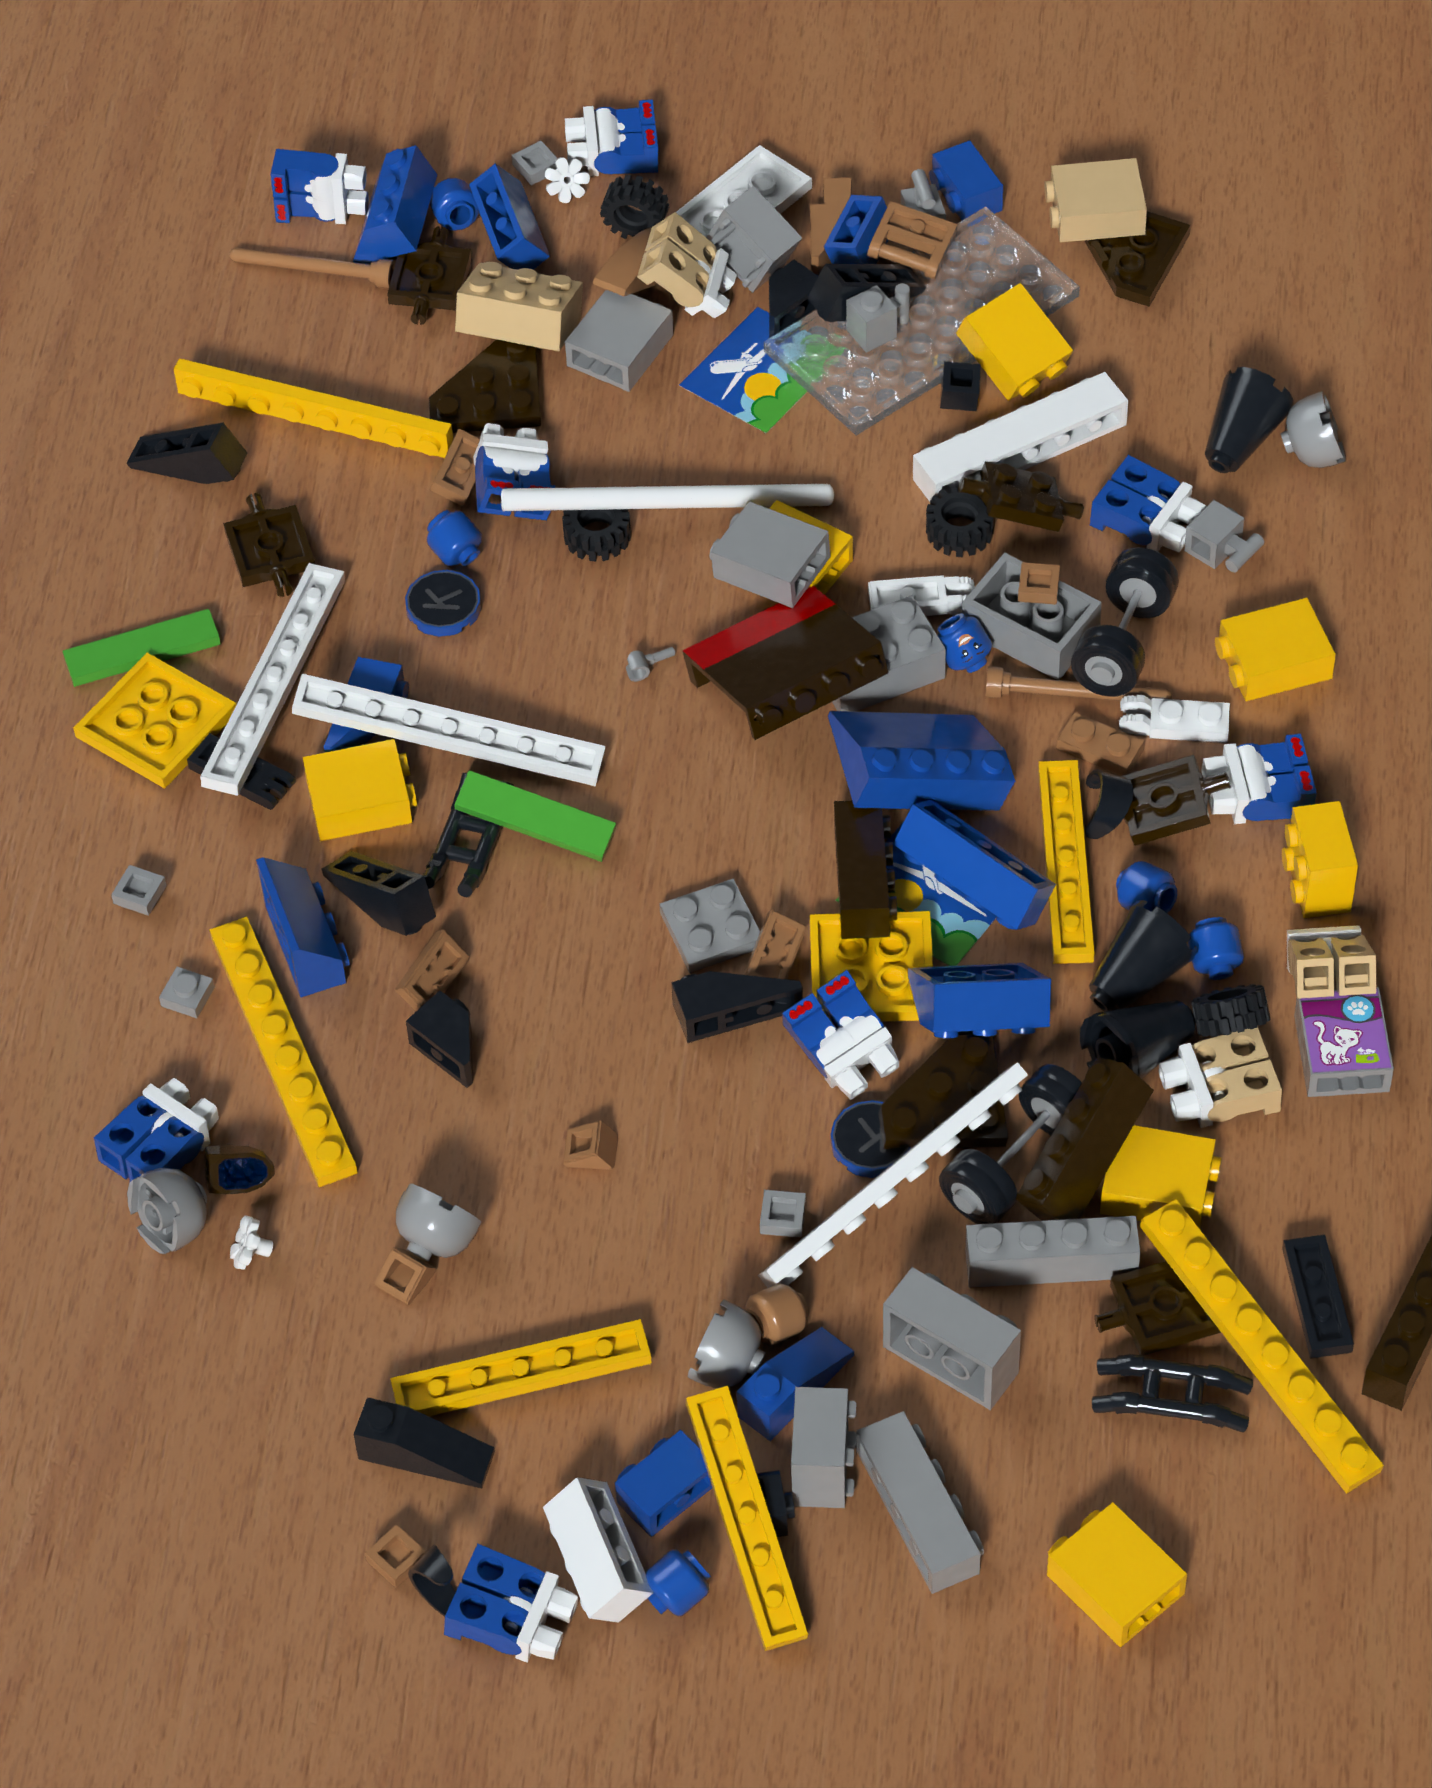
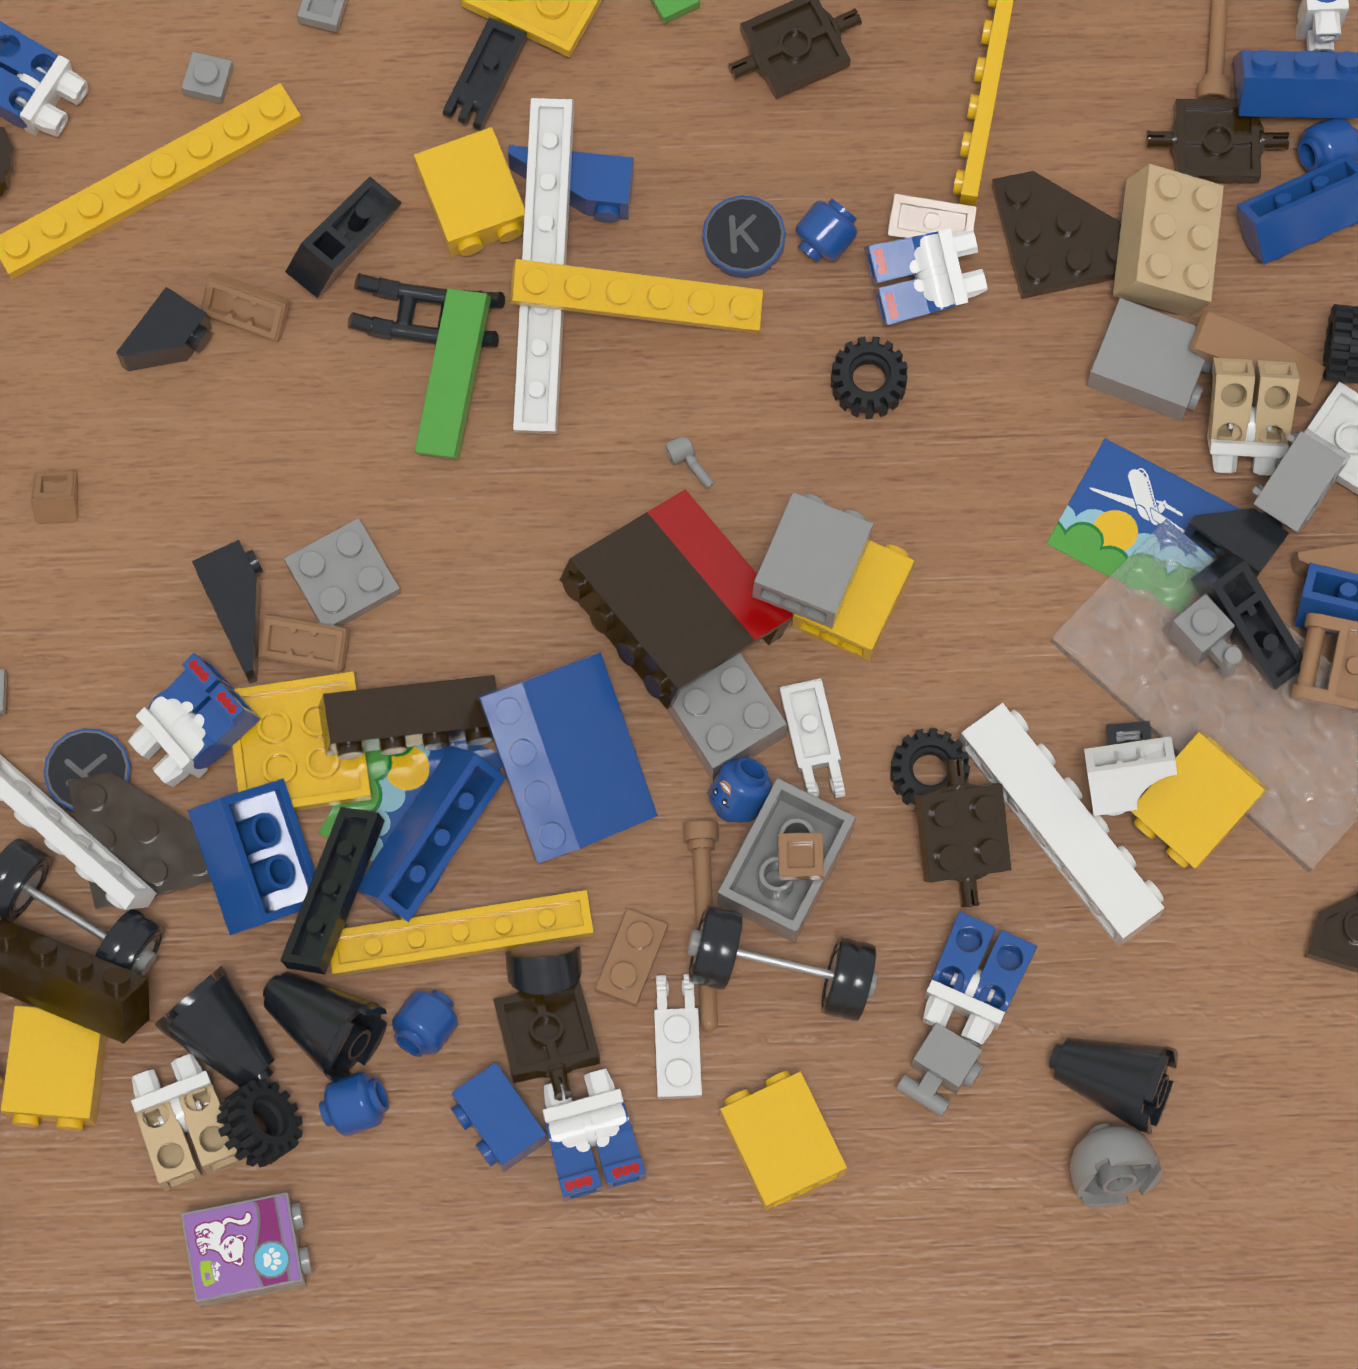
camera: 80 degrees right, 20 degrees up
(272, 679) = (602, 80): white plate -> none
(302, 926) = (280, 165): blue slope -> none
(492, 668) = (636, 296): none -> yellow plate
(664, 497) = (904, 444): white piece -> none
(989, 376) = (1125, 771): none -> white arch
(1018, 941) = (332, 890): none -> black plate
(1237, 844) = (498, 1117): none -> blue brick
(1320, 859) = (468, 1205): yellow brick -> none
(1321, 953) = (349, 1217): tan hips -> none

